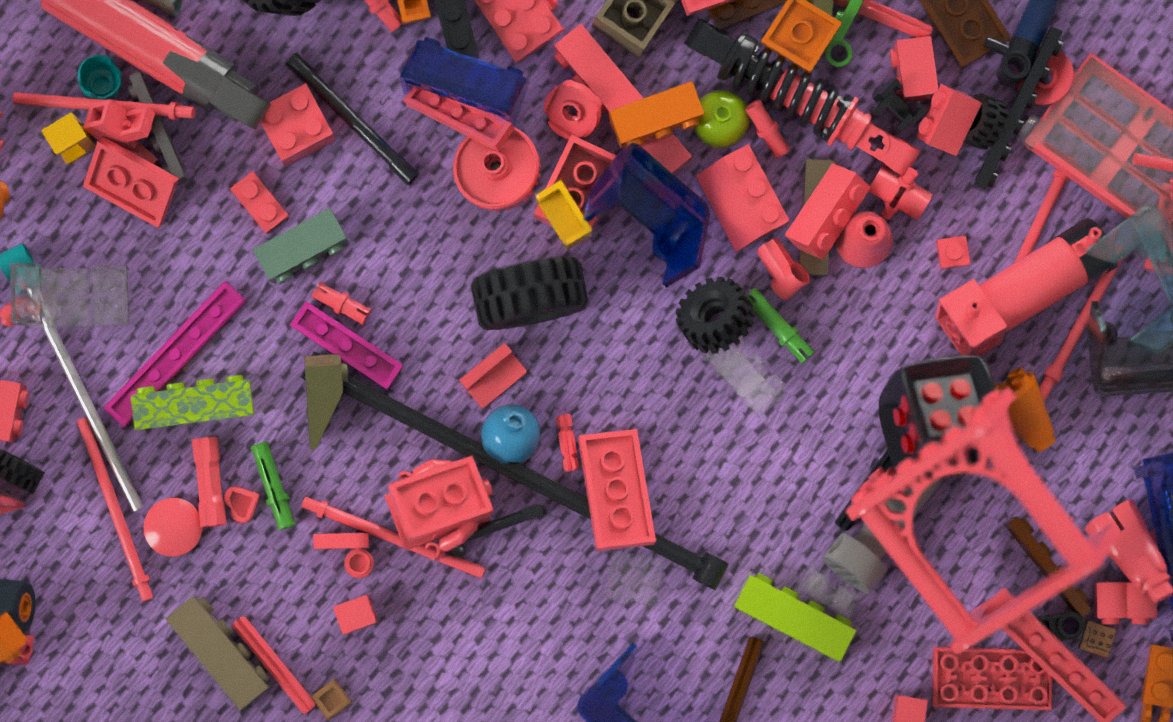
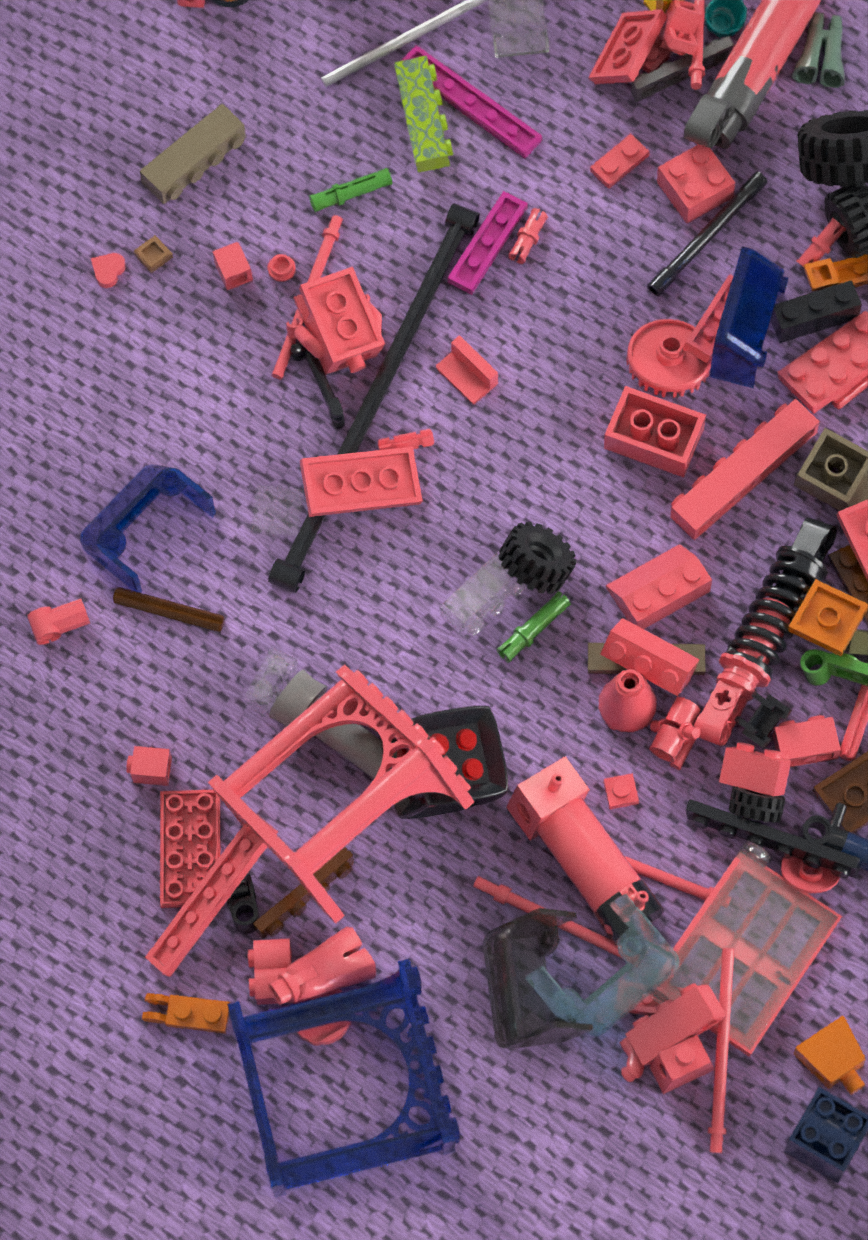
camera: 90 degrees right, 15 degrees down
(140, 579) = (257, 88): coral bar -> none
(172, 527) = (308, 111): coral dish -> none
(211, 501) = (330, 139): coral axle -> none
(242, 503) = (333, 166): coral tile -> none
(273, 665) = (184, 202): coral axle -> none
(301, 247) = (579, 196): sand green brick -> none
(323, 391) = (445, 214): olive slope -> none
(341, 541) = (301, 249): coral beam -> none
(510, 434) = (410, 386): dark azure cylinder -> none
(529, 293) = (544, 381): black tyre -> none
(564, 215) = (624, 408): yellow panel -> none
(582, 99) = (733, 421): coral plate -> none
(657, 115) = (731, 489): orange brick -> none
(657, 202) = (649, 497): clear blue windscreen -> none
(724, 119) = (738, 563): lime cylinder -> none
(767, 128) = (731, 602): coral pin -> none
(786, 274) = (584, 629): coral piece -> none
(795, 618) = (243, 654): lime brick -> none
(1028, 410) = (462, 858): orange cone -> none
(1097, 639) = (233, 948): medium nougat tile -> none

